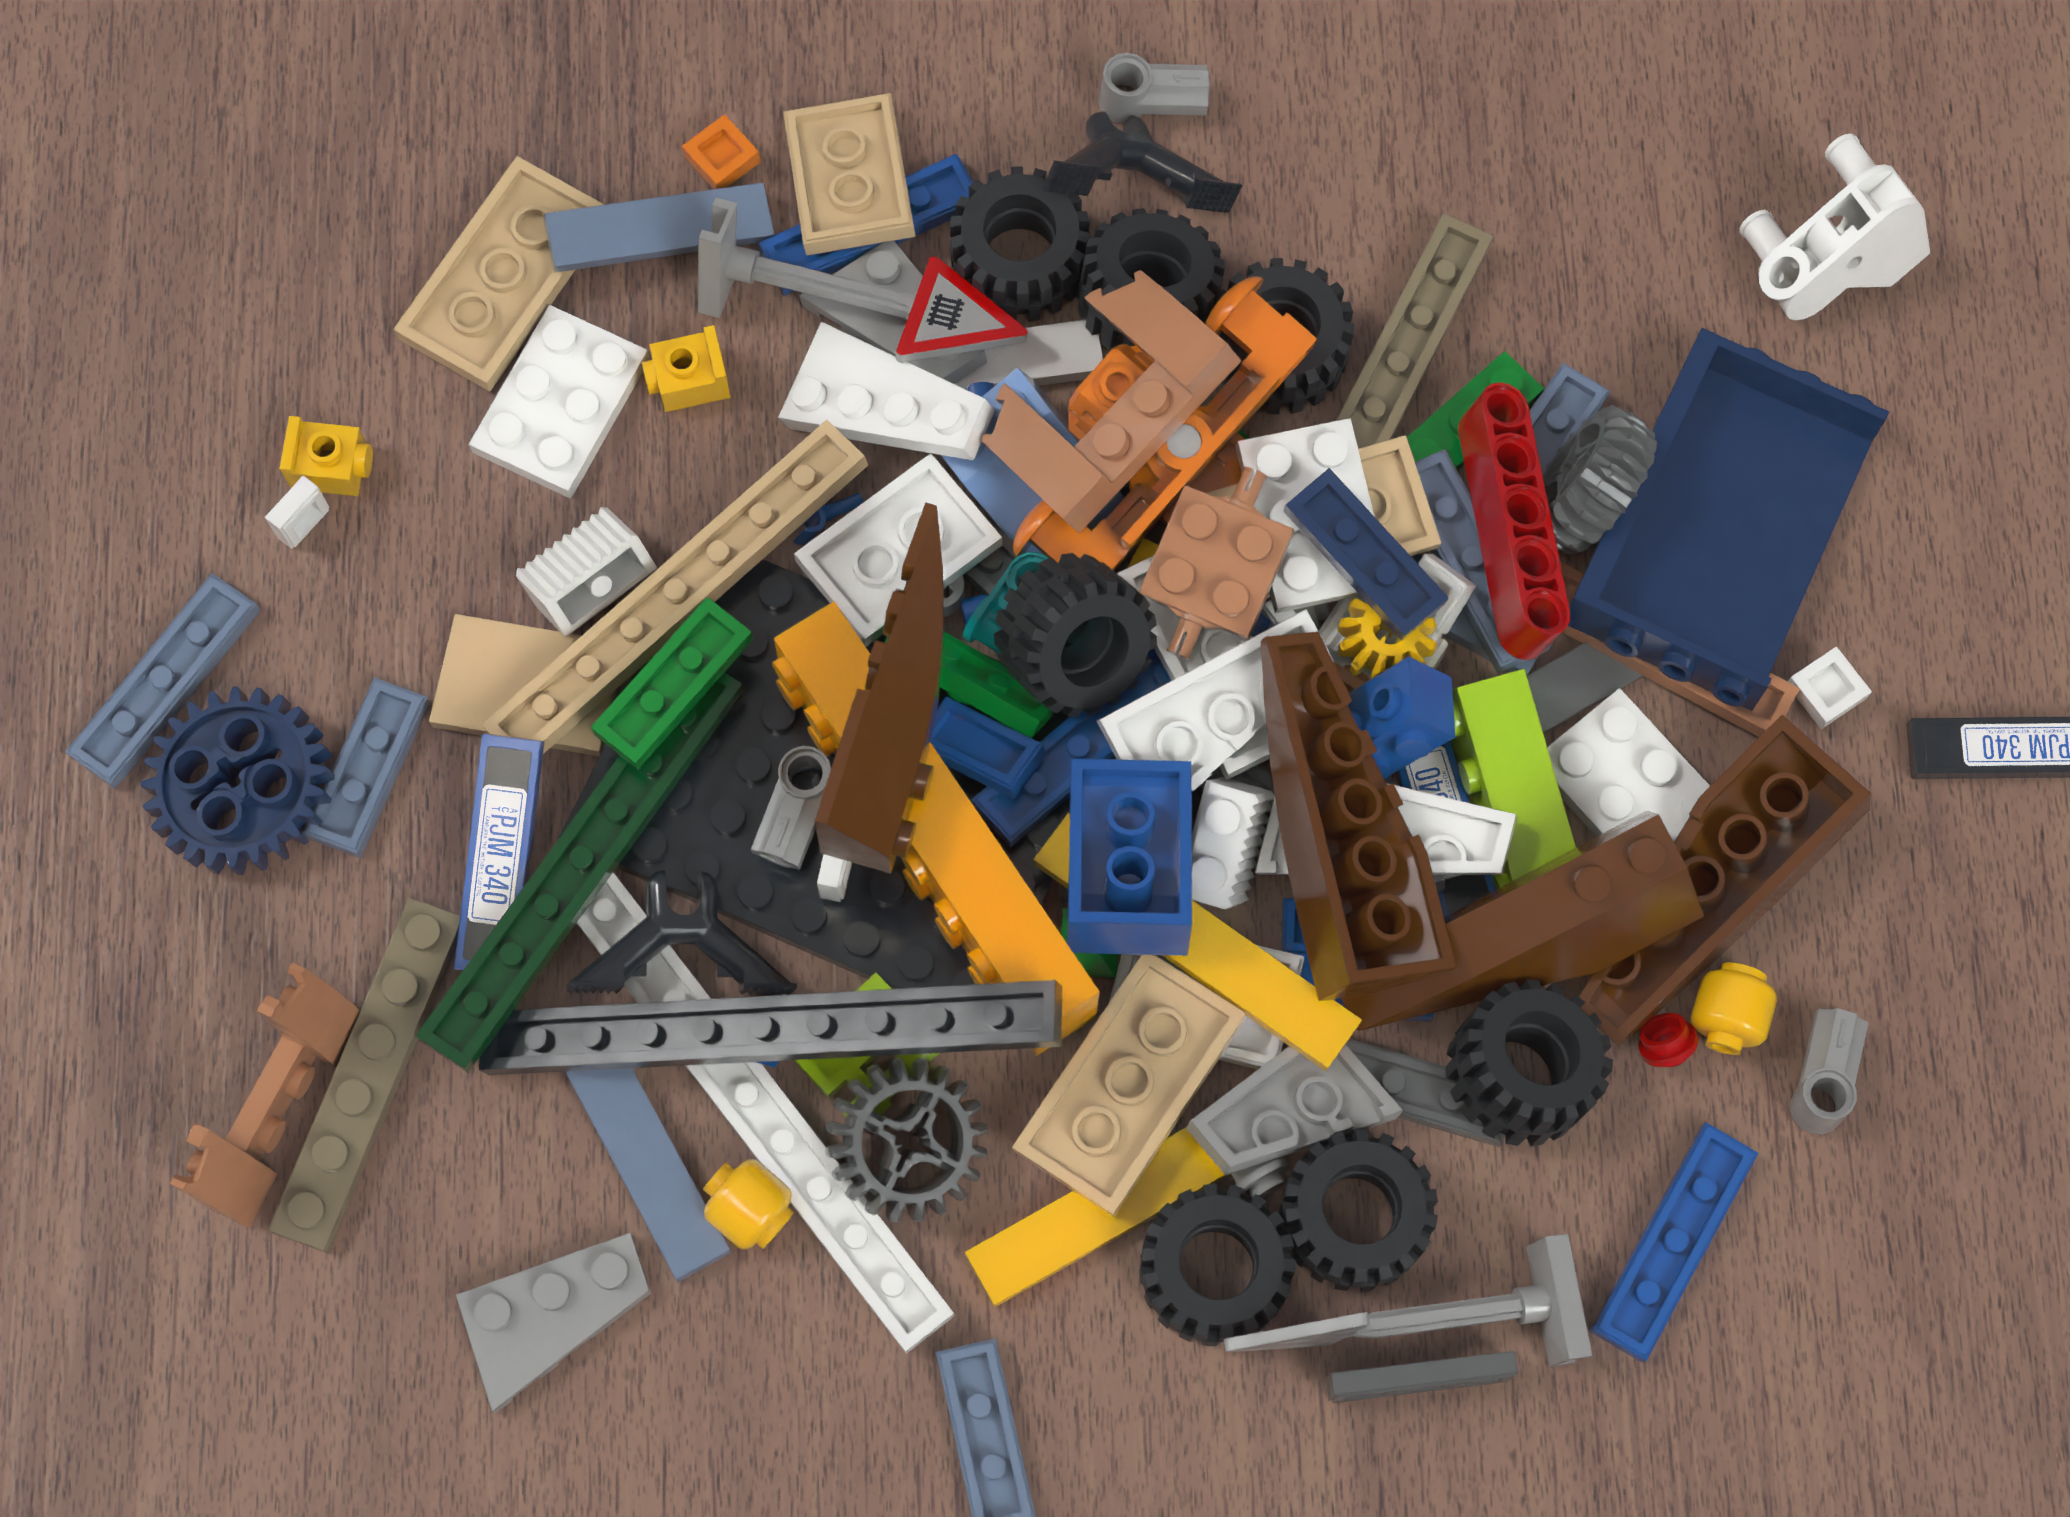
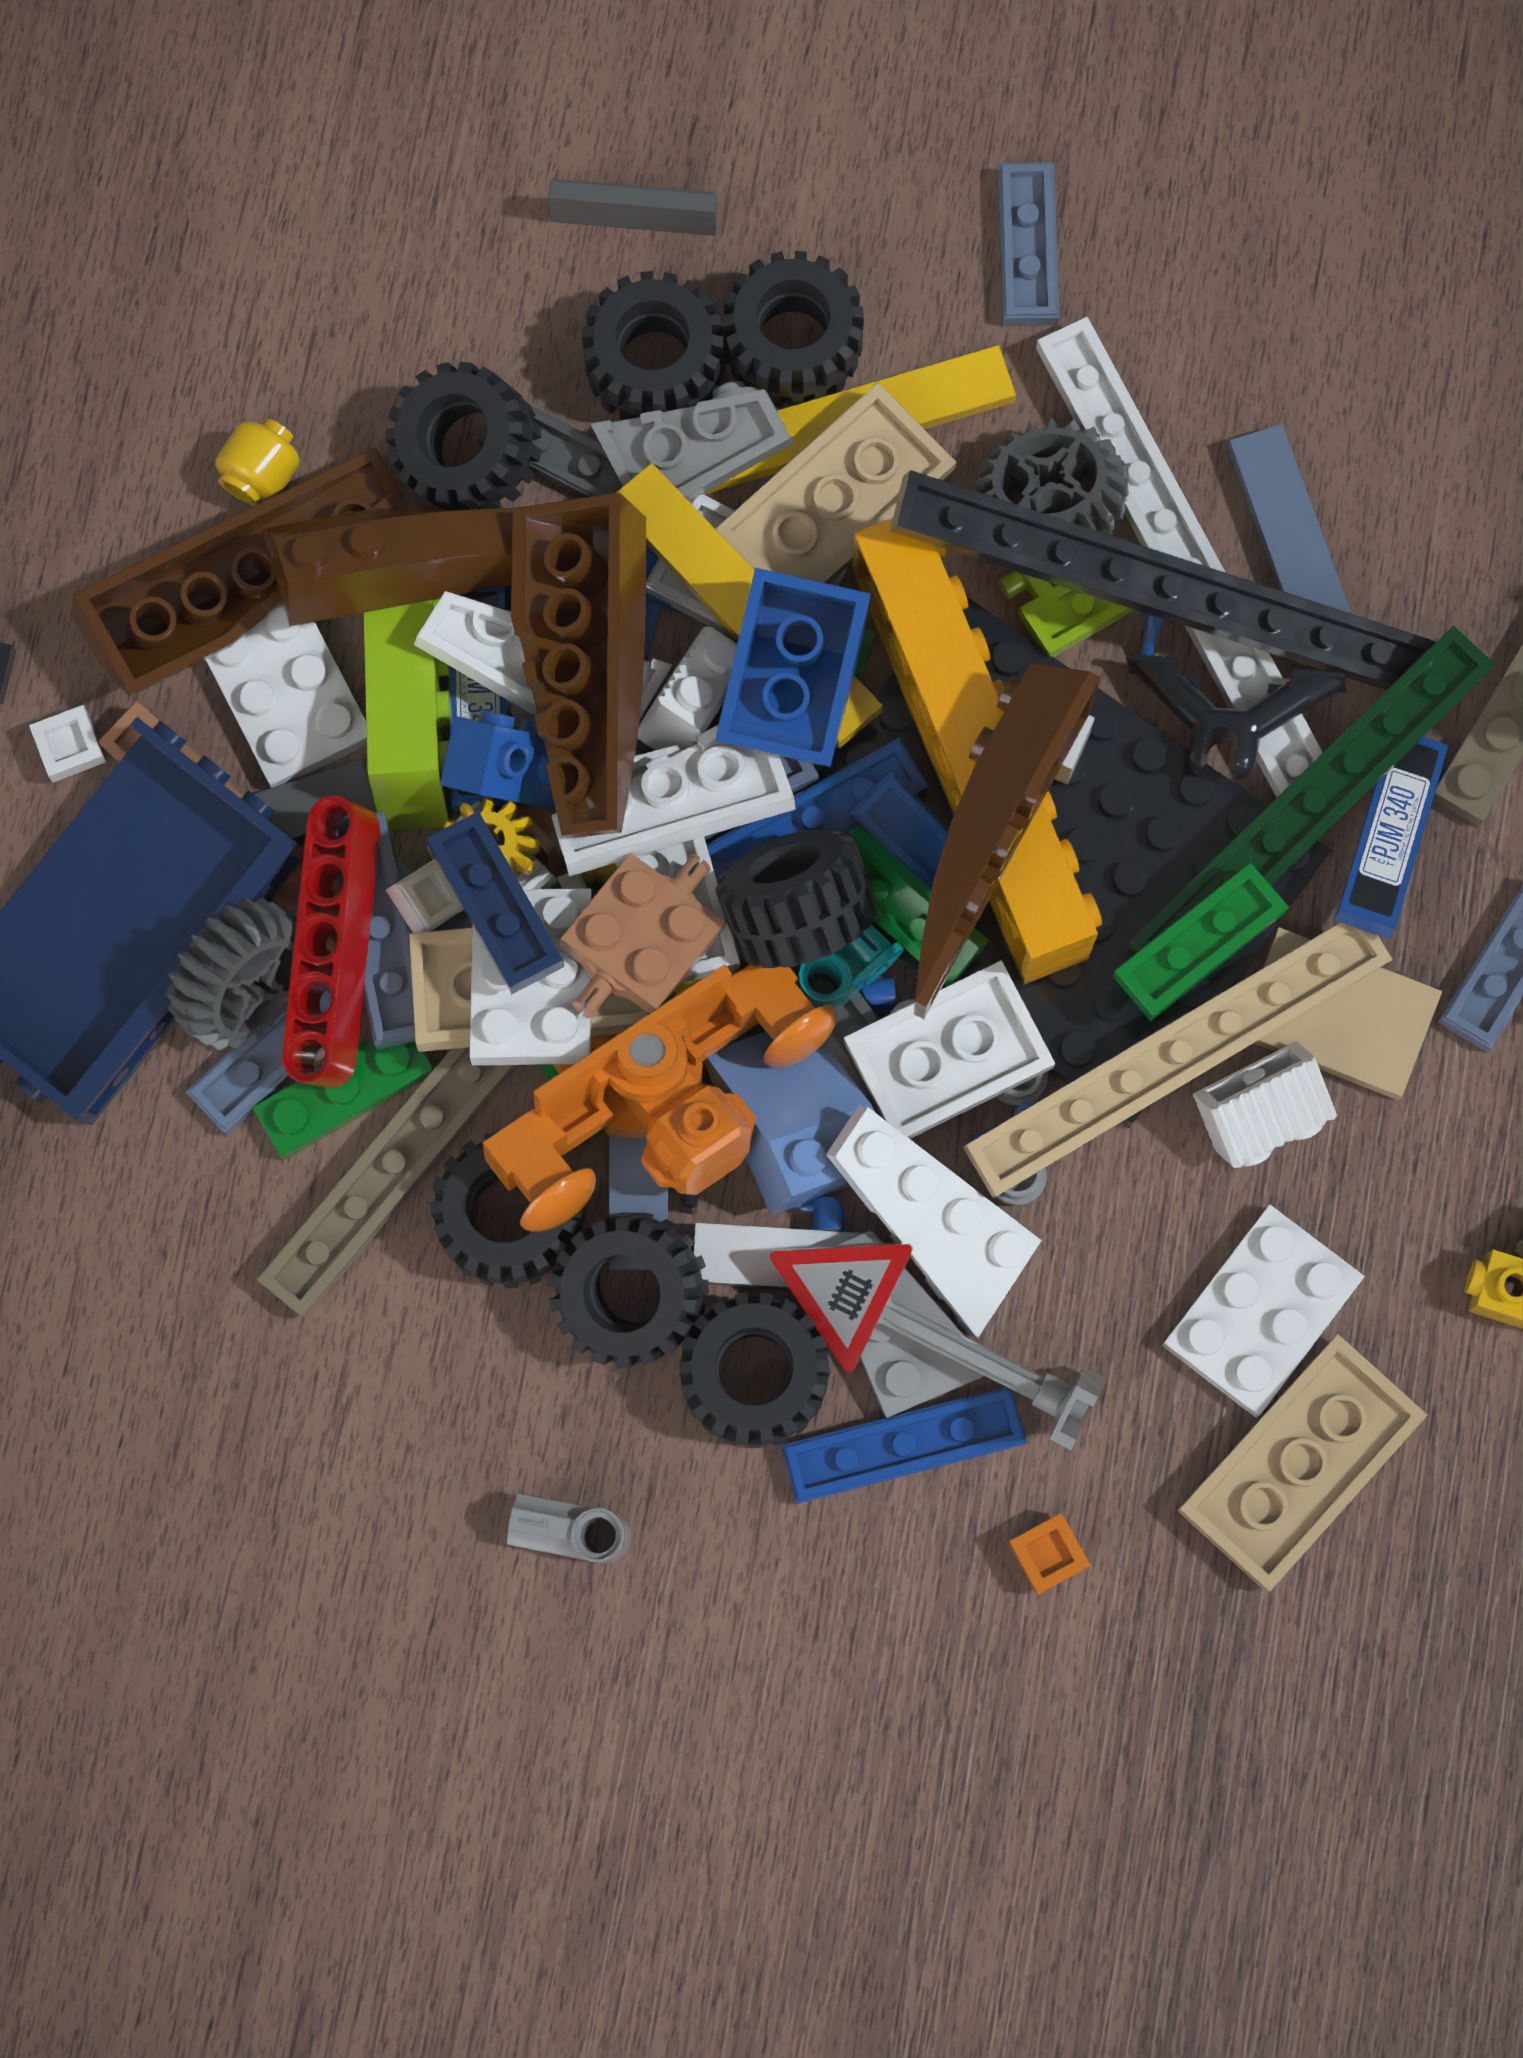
camera: 165 degrees left, 5 degrees up
(548, 1311) = (1401, 425): light grey wing -> none
(650, 227) = (1130, 1474): sand blue tile -> none
(688, 387) = (1110, 1324): yellow brick -> none
(747, 1204) = (1207, 471): yellow head -> none
(791, 811) = (1103, 805): light grey piece -> none
(848, 174) = (917, 1499): tan tile -> none
(1137, 151) = (604, 1454): black piece -> none
(1184, 372) = (633, 1108): nougat wedge -> none
(1550, 1300) = (713, 238): light grey piece -> none
(1667, 1040) = (323, 461): red plate -> none
(1673, 1242) = (373, 282): blue tile -> none
(1829, 1066) = (184, 394): light grey piece -> none

